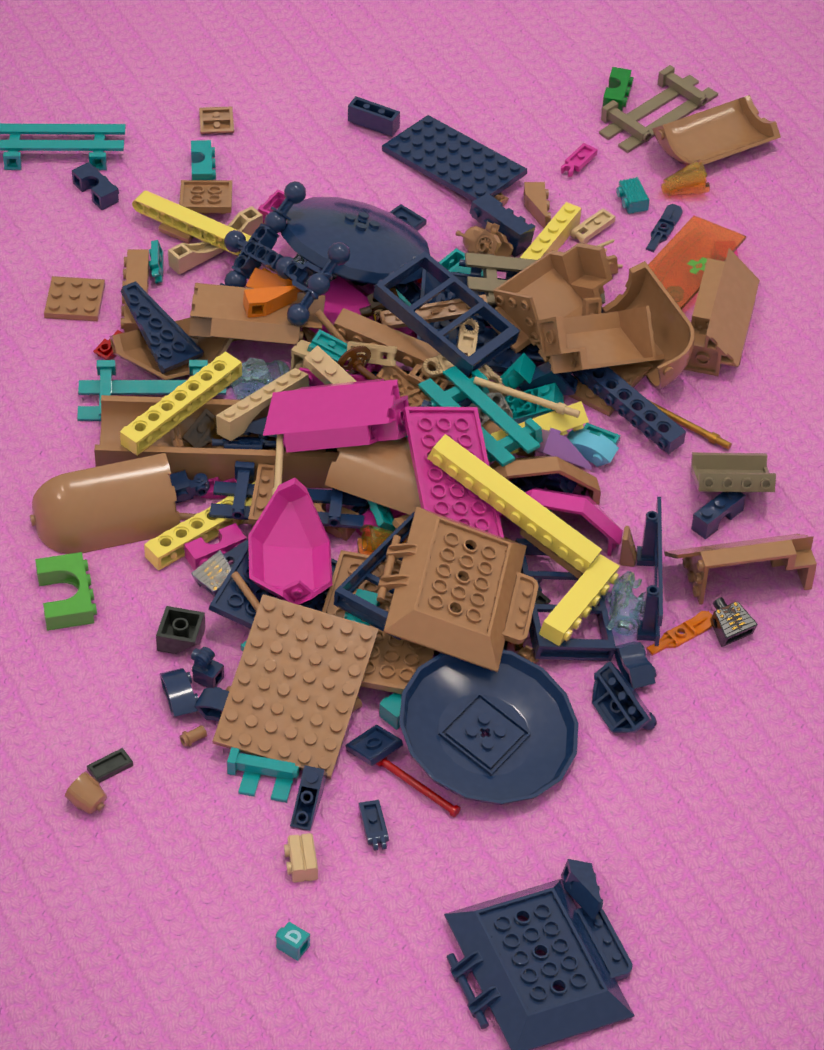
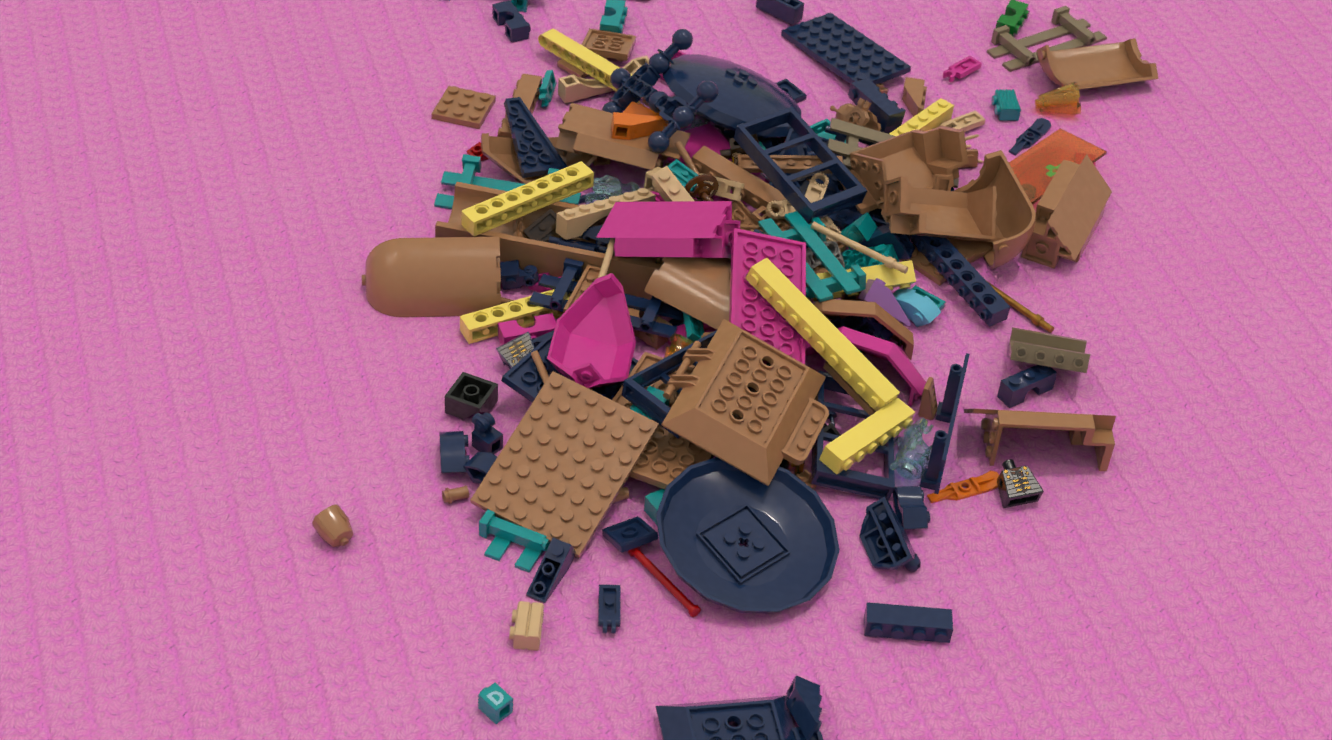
camera: 10 degrees right, 5 degrees down
(70, 570) = (379, 362): bright green arch -> none
(110, 765) = (366, 506): pearl dark grey tile -> none
(658, 783) = (908, 622): none -> dark blue brick

